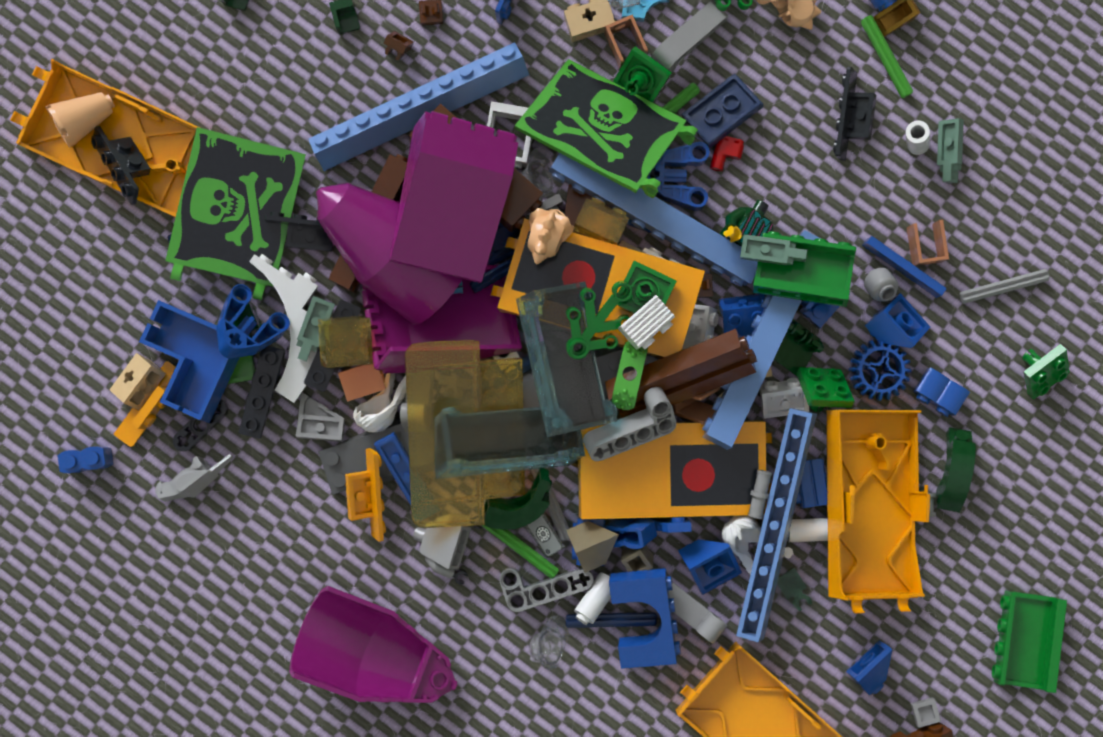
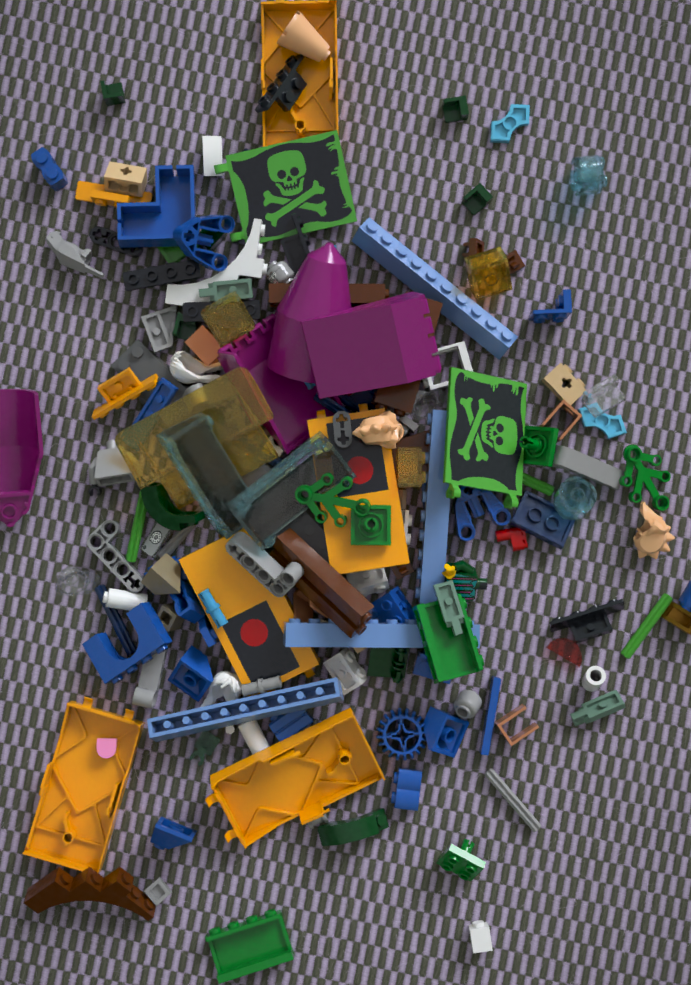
camera: 55 degrees right, 0 degrees up
(36, 351) = (113, 93): none -> dark green panel
(156, 276) = (211, 154): none -> white slope
(321, 263) = (280, 272): none -> light grey head
(332, 397) = (182, 329): none -> dark green panel
(431, 40) = (488, 273): none -> clear yellow brick
(524, 279) = (337, 430): none -> dark grey beam
(626, 391) = (288, 546): bright green piece -> none
(646, 323) = (346, 537): white brick -> none
(651, 506) = (213, 608): none -> dark azure pin
(716, 65) = (567, 493): none -> clear light blue brick
(744, 694) = (106, 747): none -> bright pink tile
(825, 388) = (367, 698): green plate -> none
(872, 152) = (567, 649): none -> clear red tile

